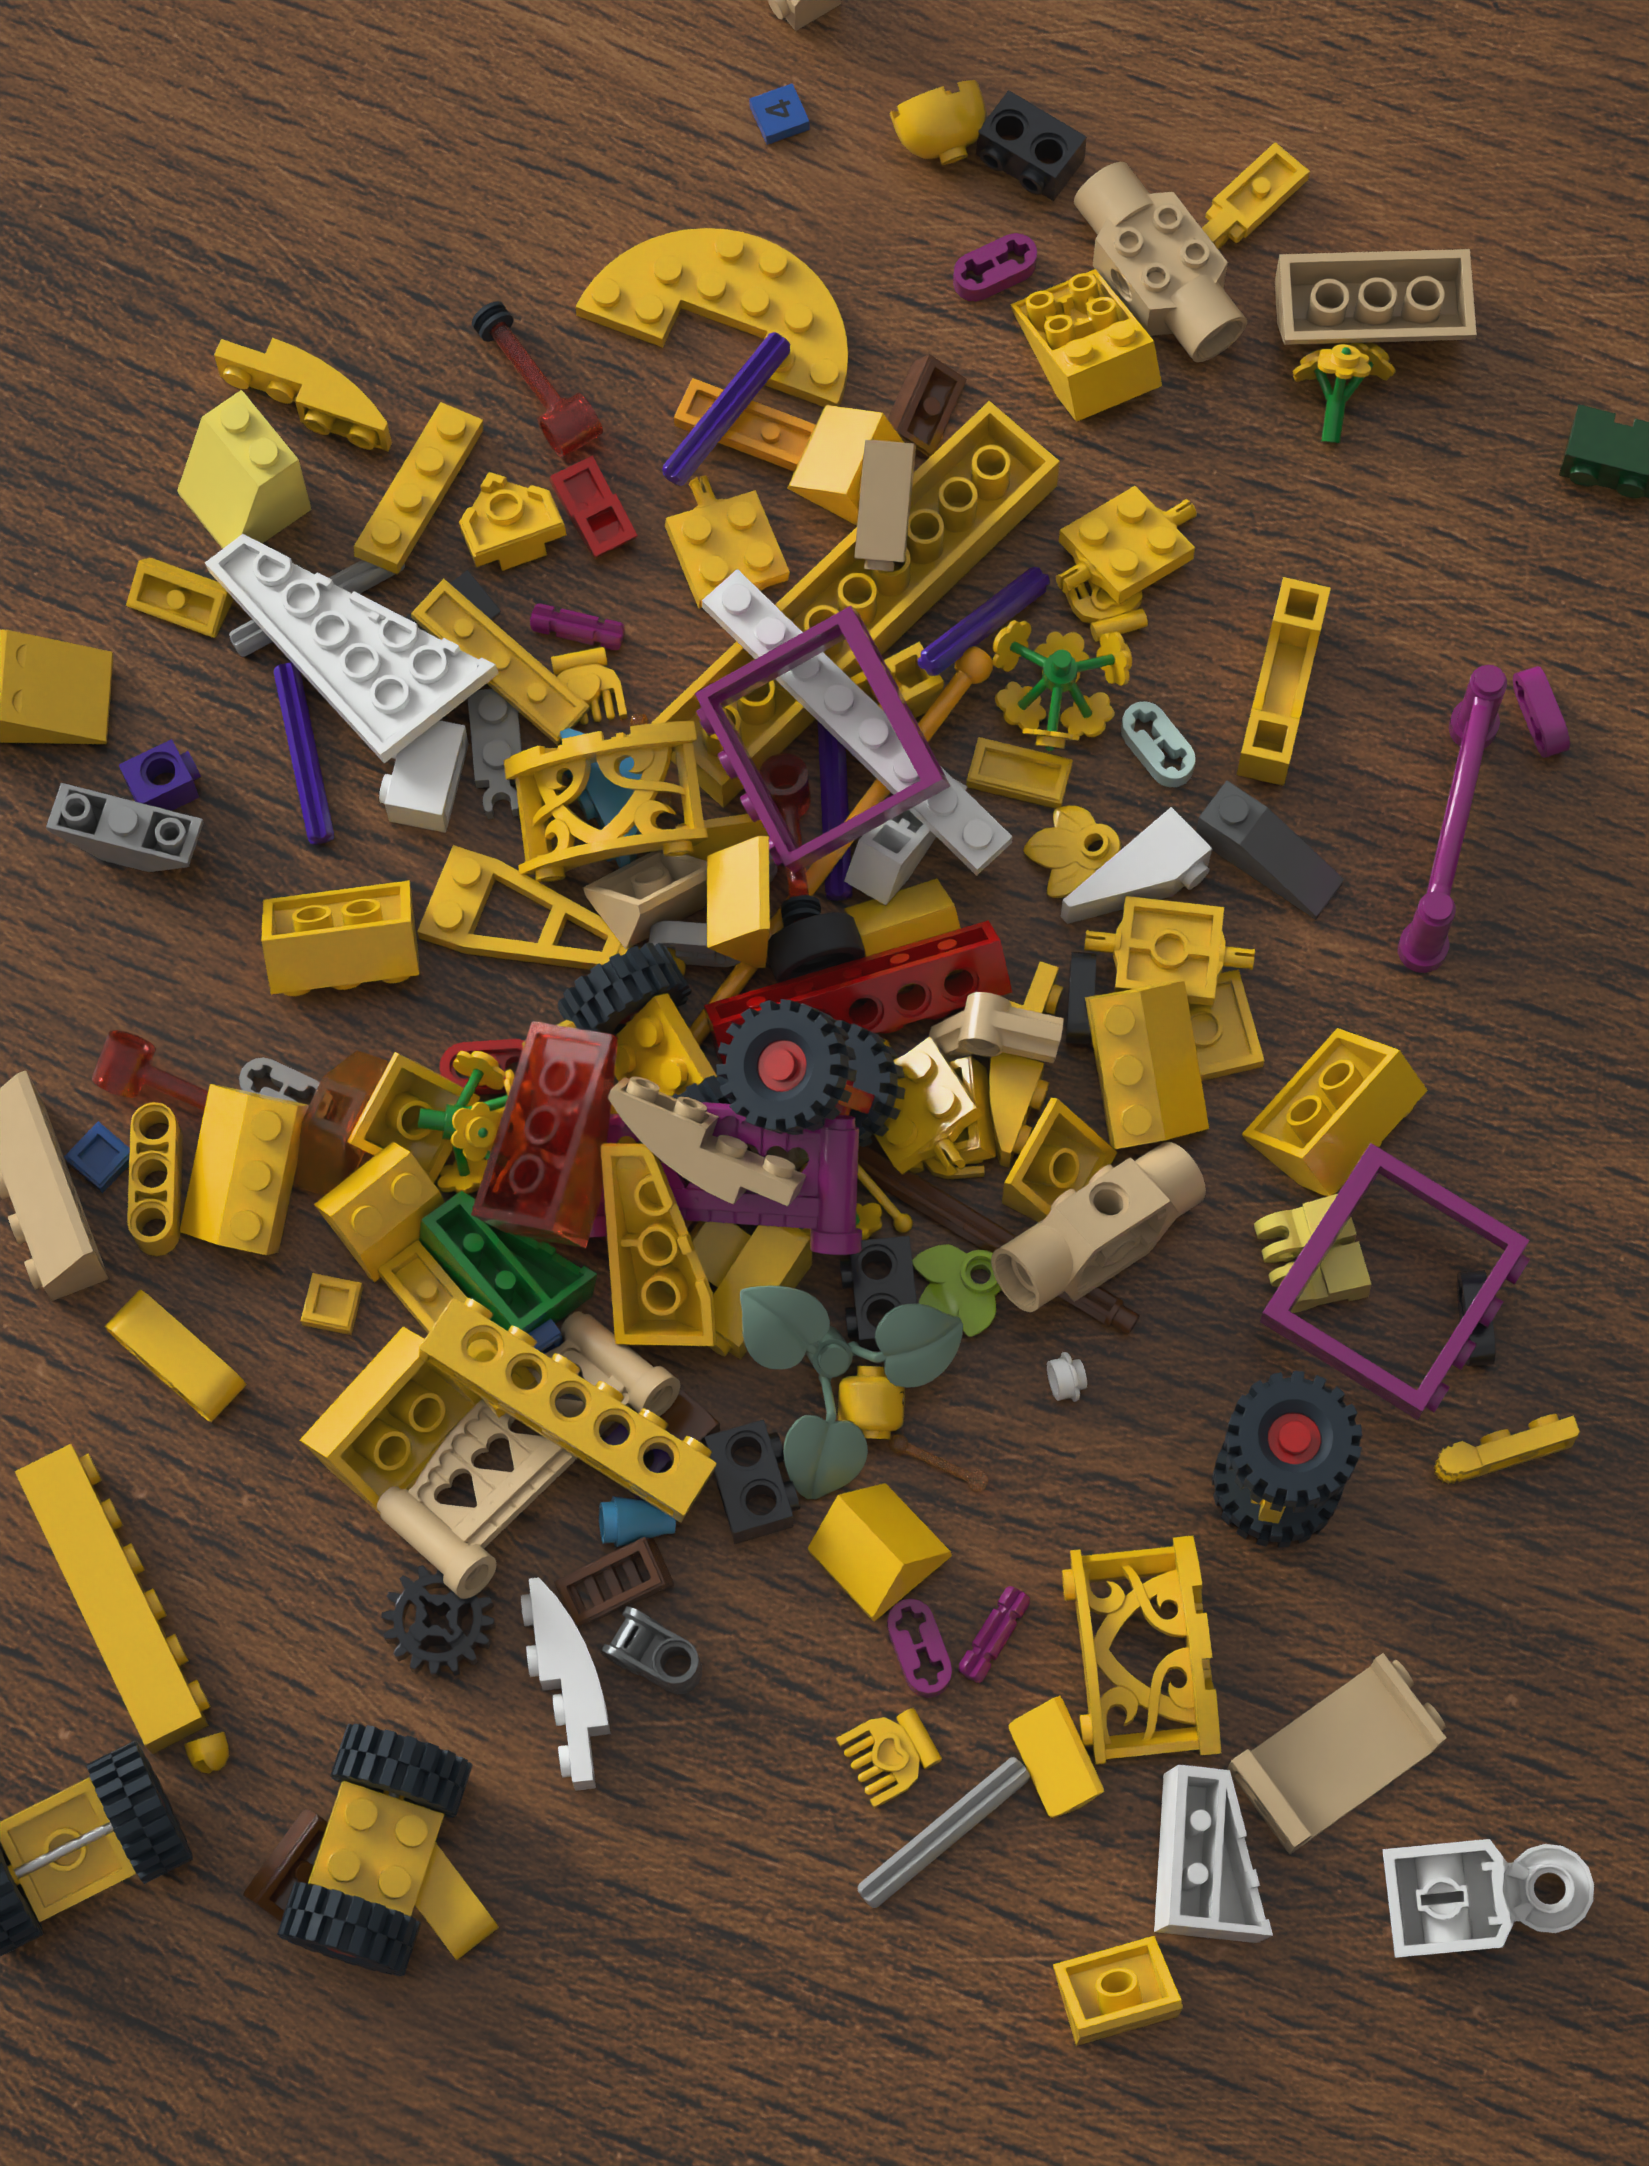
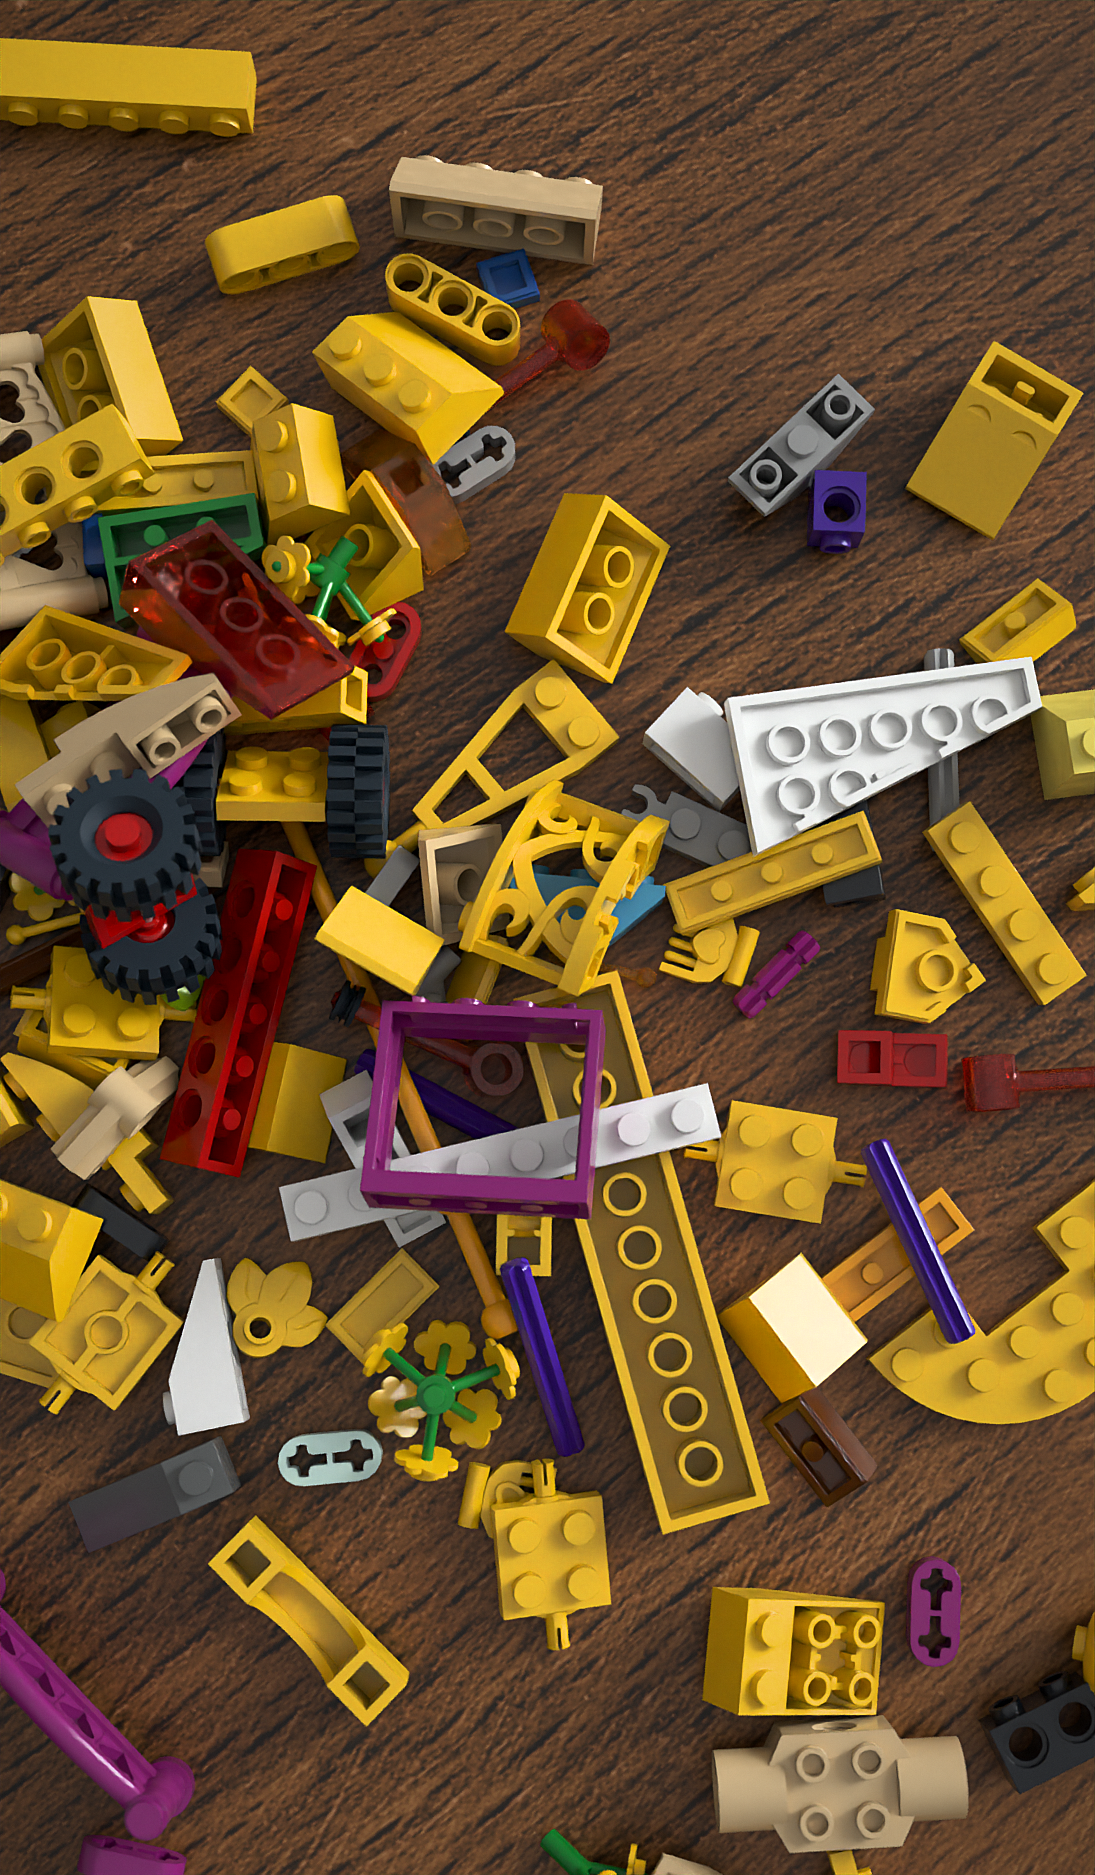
camera: 115 degrees right, 10 degrees up
(303, 754) = (782, 651): dark purple axle -> none
(814, 945) = (306, 996): black tyre -> none
(884, 503) = (708, 1324): tan slope -> none

